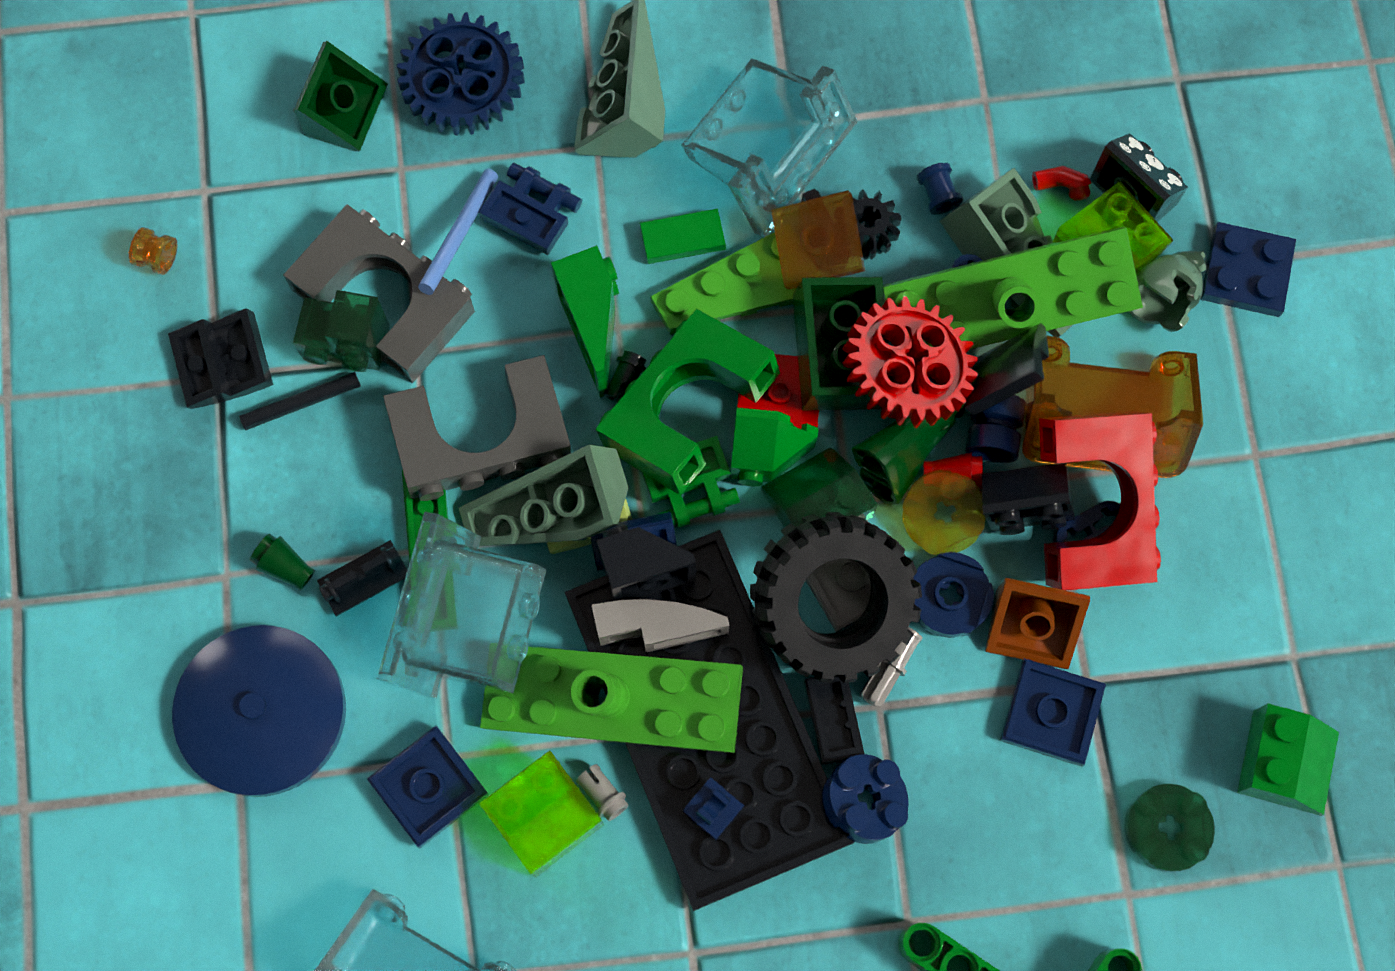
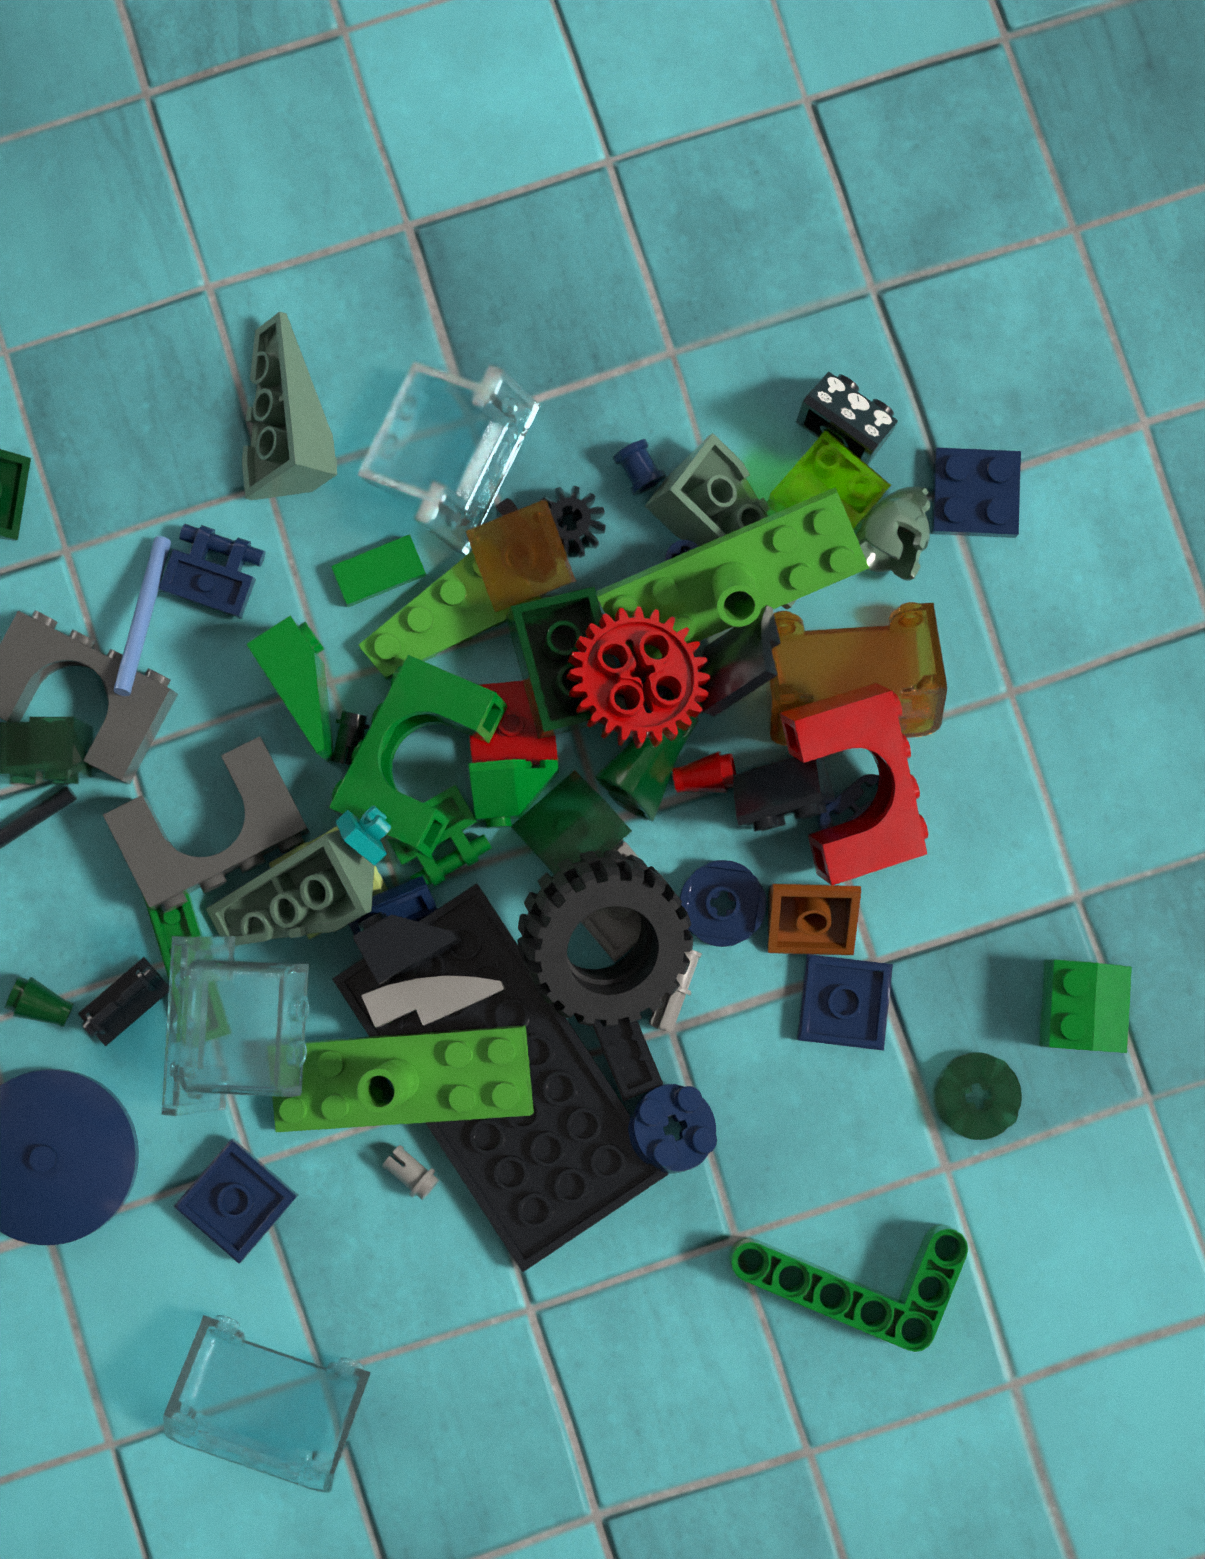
camera: 10 degrees left, 10 degrees up
(465, 43) = (105, 397): dark blue gear -> none
(541, 814) = (354, 1208): clear neon green slope -> none
(627, 452) = (365, 833): none -> teal tile
(713, 808) = (523, 1170): dark blue tile -> none
(937, 535) = (695, 843): clear yellow plate -> none
(995, 431) = (741, 727): dark blue wheel -> none
(1063, 176) = (768, 427): red arm -> none

